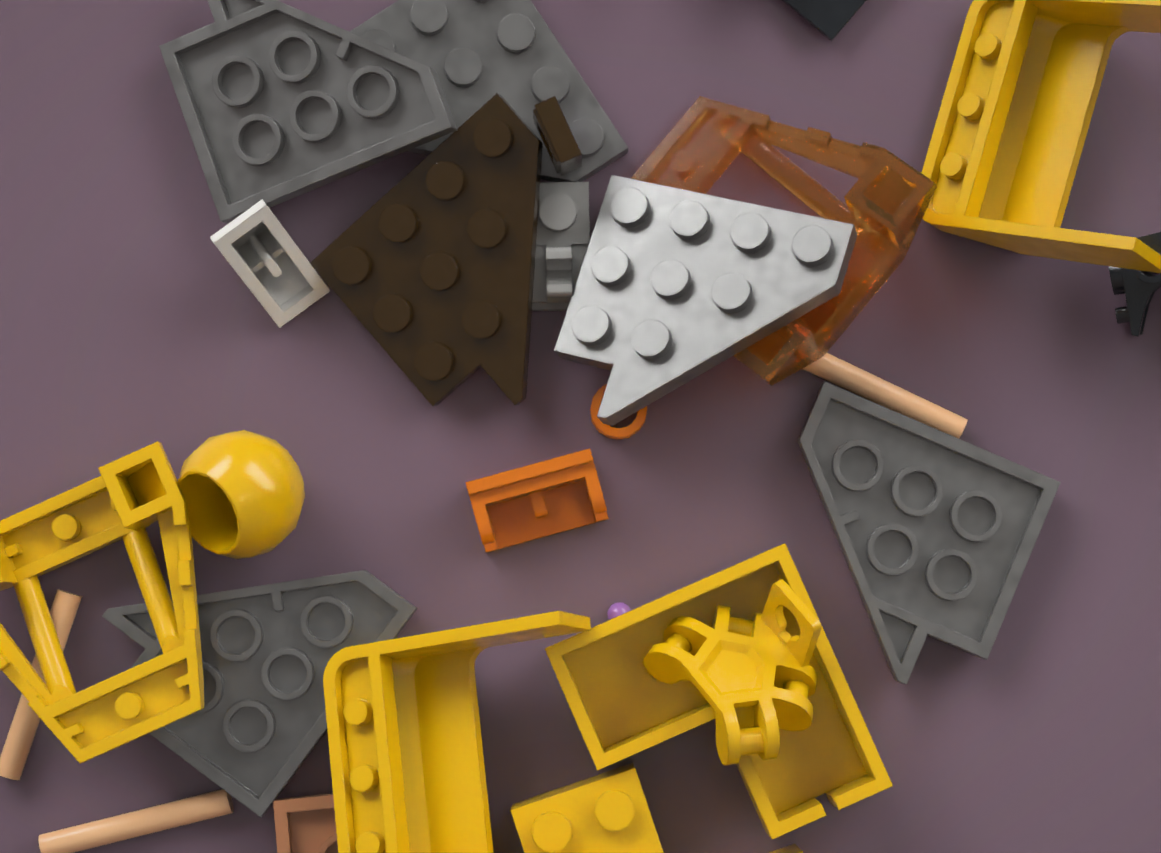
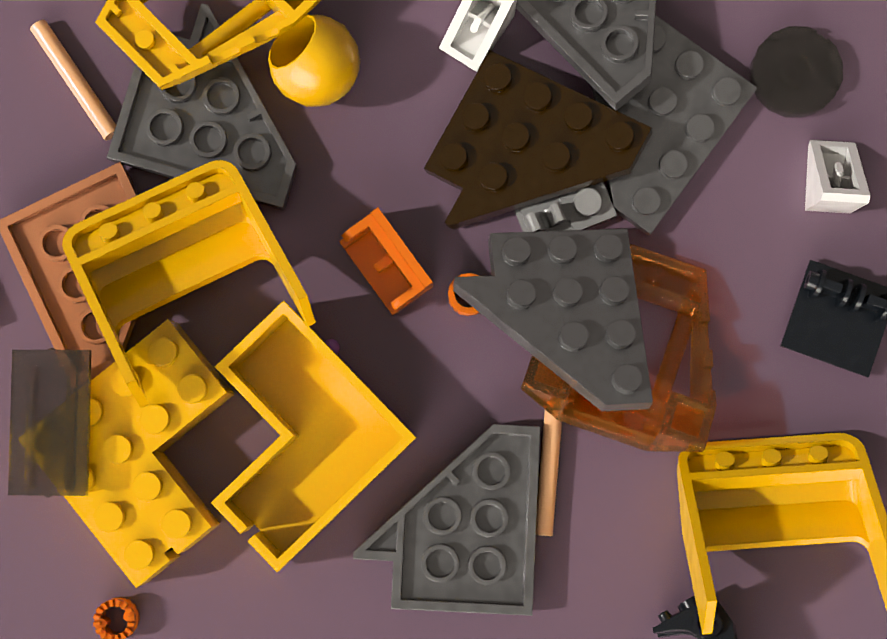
camera: 75 degrees right, 0 degrees up
(557, 136) = (637, 179): dark brown tile -> none
(738, 666) = (316, 436): yellow piece -> none

